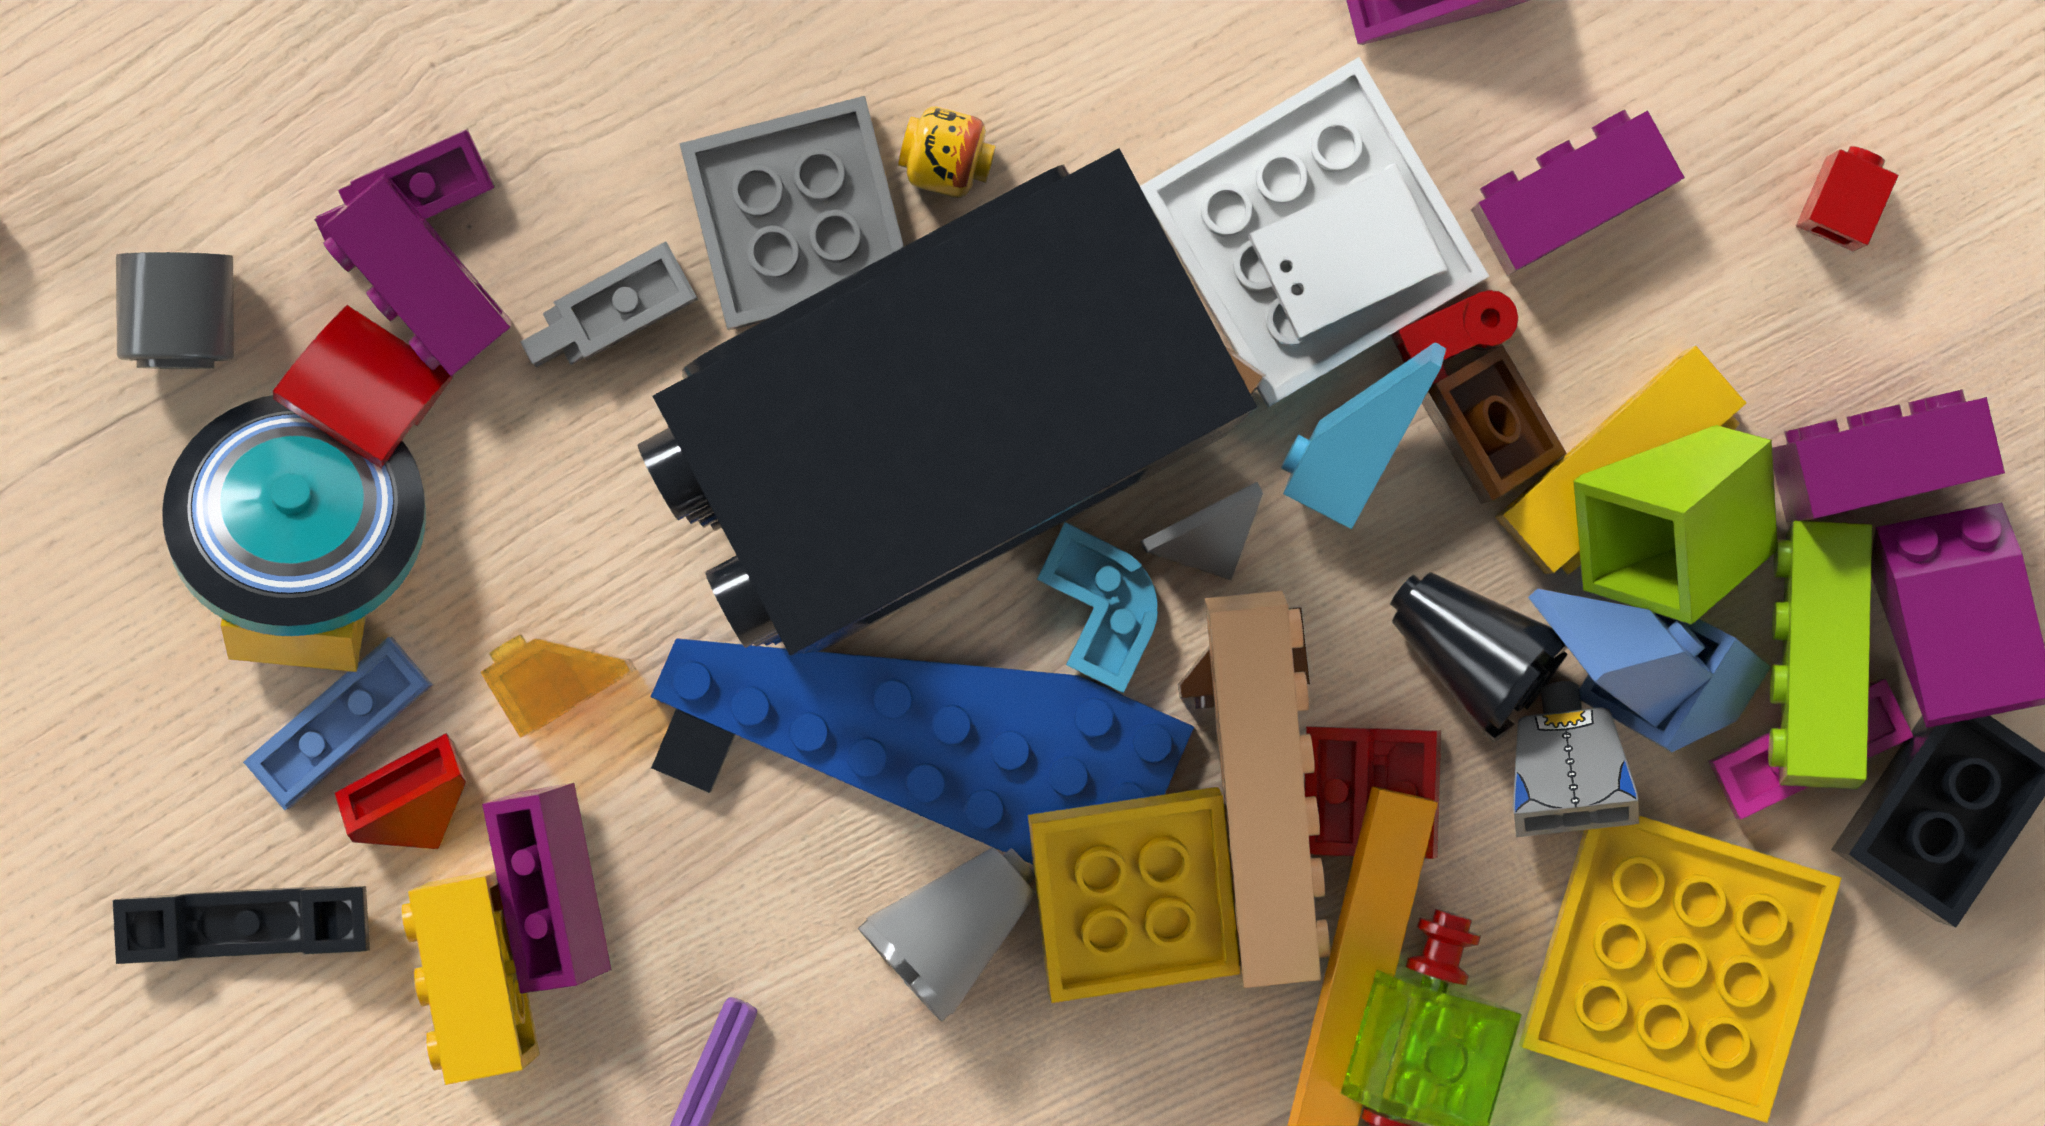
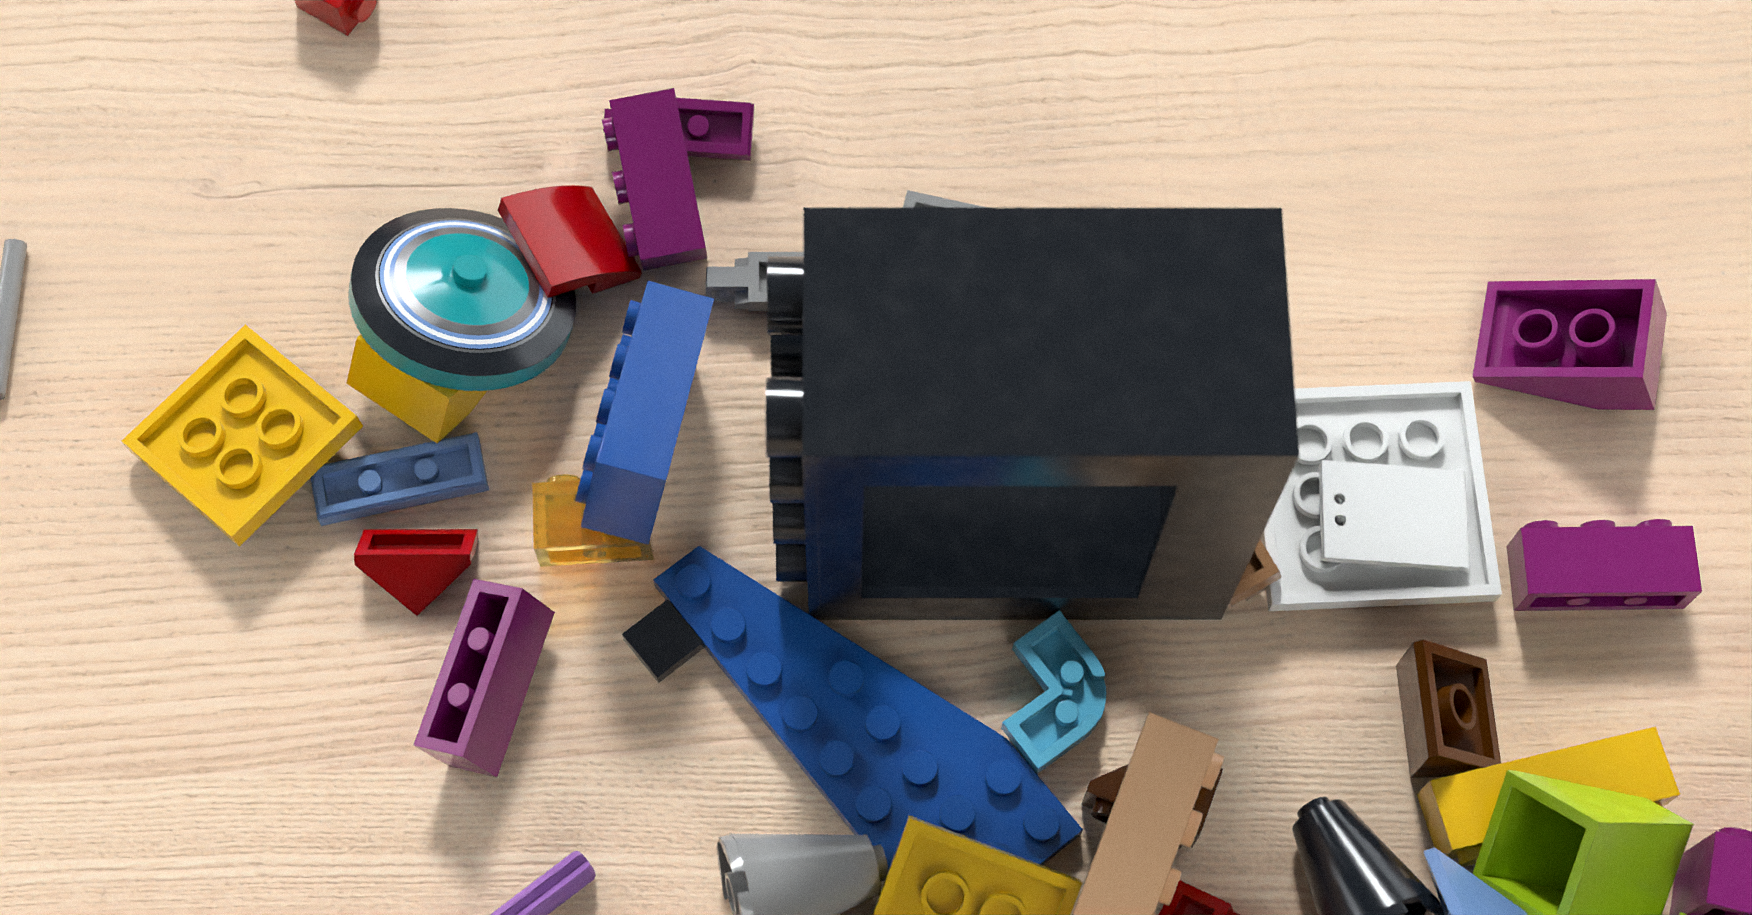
camera: 25 degrees right, 20 degrees down
(157, 767) = (242, 434): none -> yellow plate
(174, 309) = (465, 115): dark grey piece -> none
(241, 923) = (228, 587): black slope -> none
(469, 979) = (377, 711): yellow brick -> none
(559, 560) = (642, 412): none -> blue brick
(1210, 537) = (1171, 680): light grey slope -> none
(1356, 441) = (1327, 666): medium azure slope -> none
(1474, 323) = (1456, 622): red leg -> none

